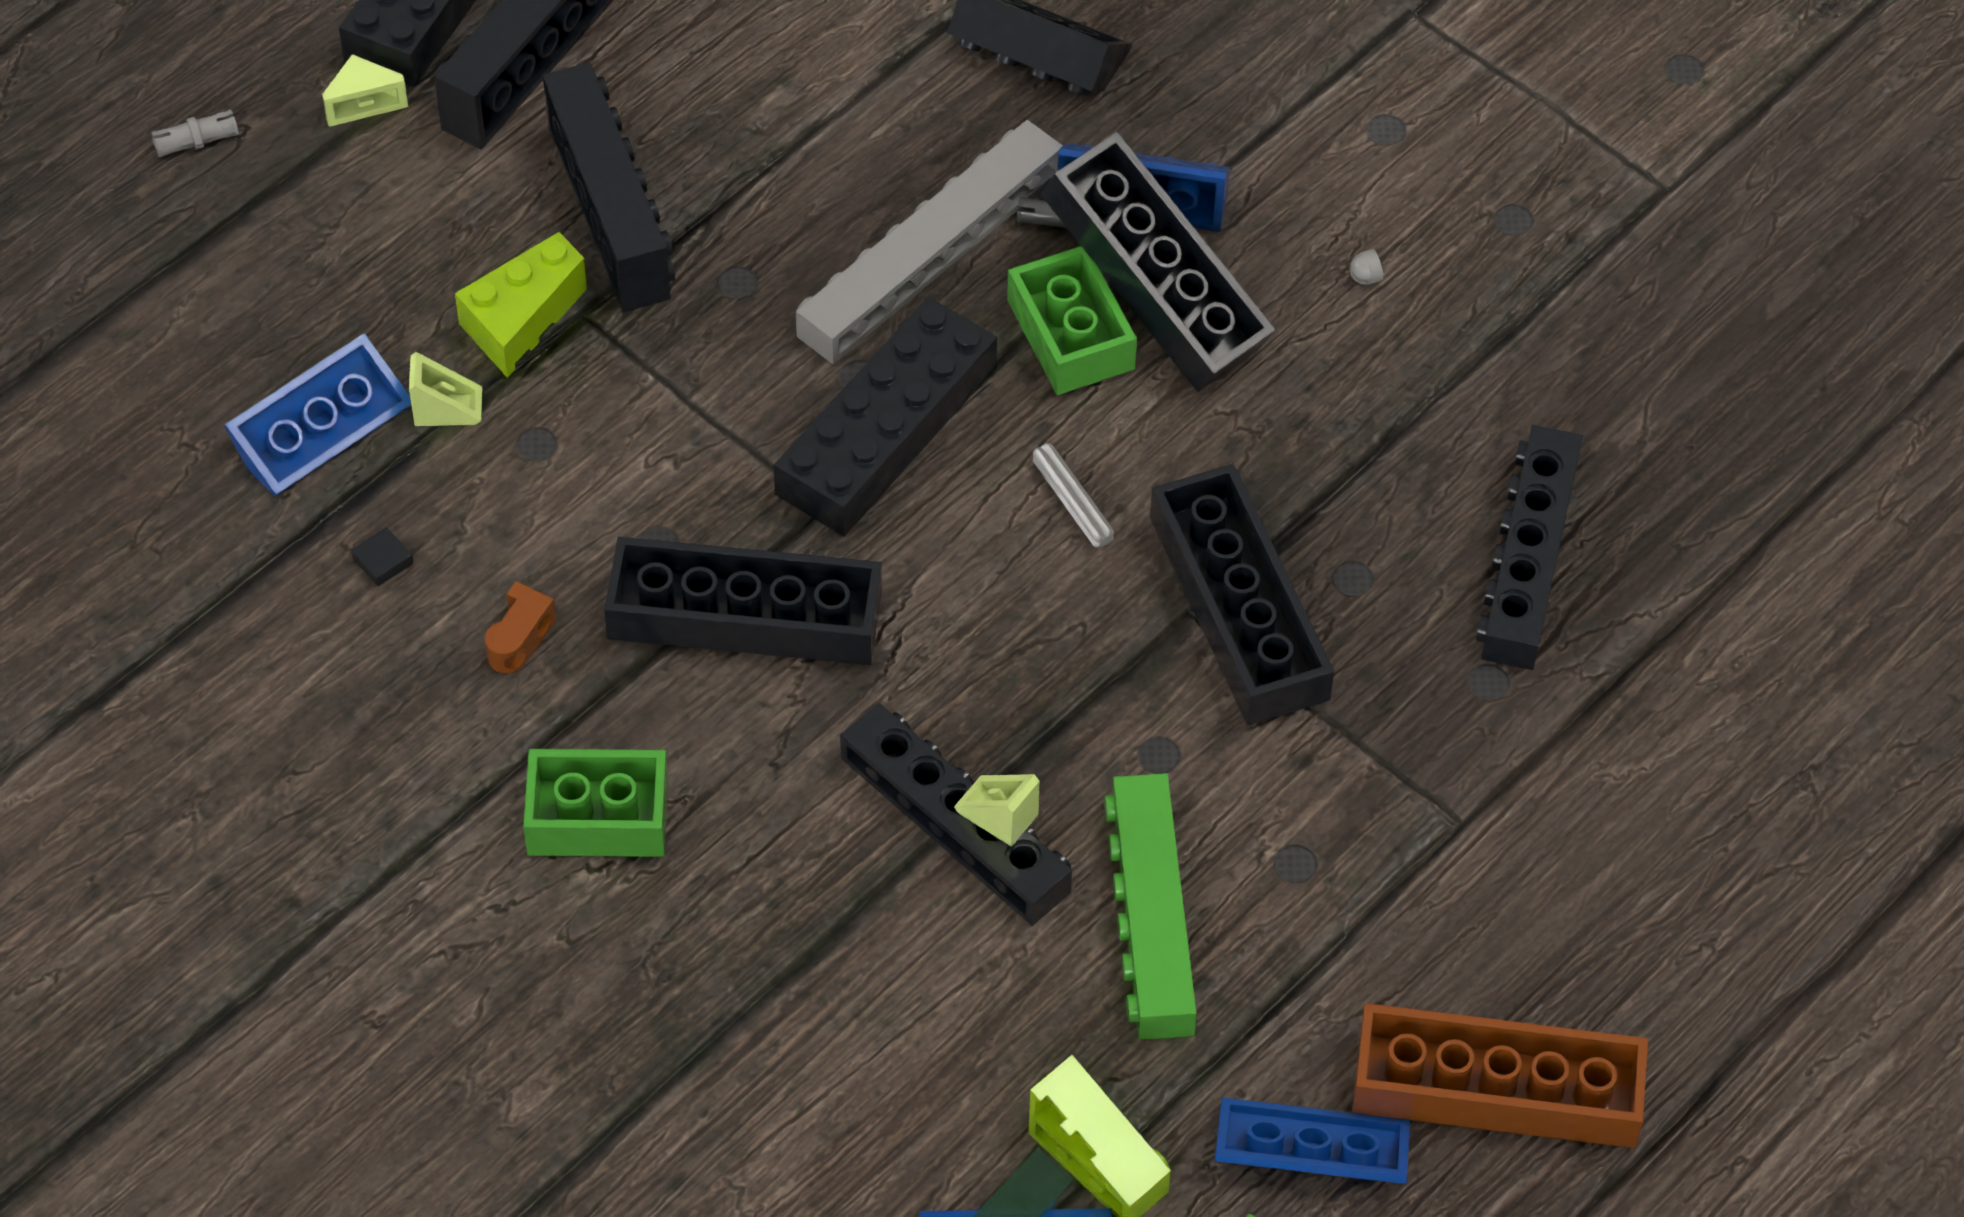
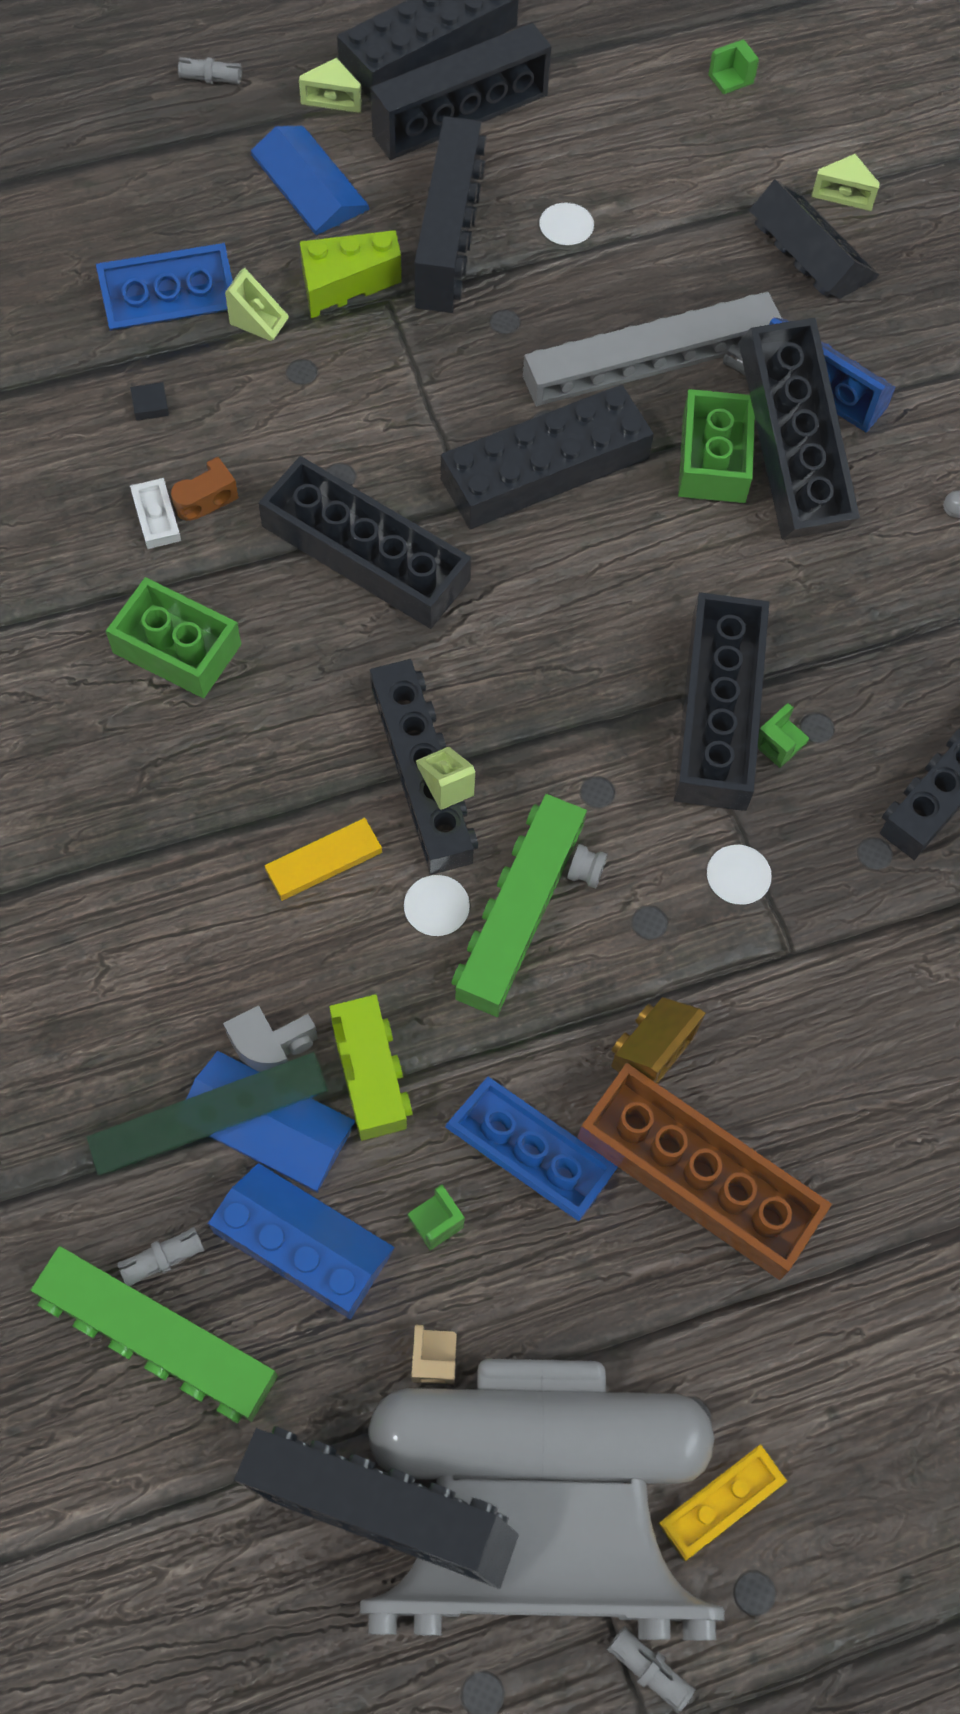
camera: 25 degrees right, 10 degrees up
(398, 213) = (308, 178): none -> blue slope
(477, 679) = (155, 513): none -> white plate
(739, 137) = (566, 223): none -> white sticker
(908, 962) = (323, 859): none -> yellow tile
(967, 1180) = (264, 1048): none -> light grey brick
(1059, 953) = (436, 905): none -> white sticker
(1073, 495) = (646, 573): light grey axle -> none
(1199, 834) = (587, 866): none -> light grey wheel
(1325, 605) = (781, 738): none -> bright green panel
(1360, 770) = (739, 874): none -> white sticker
(1378, 966) = (659, 1038): none -> pearl gold slope

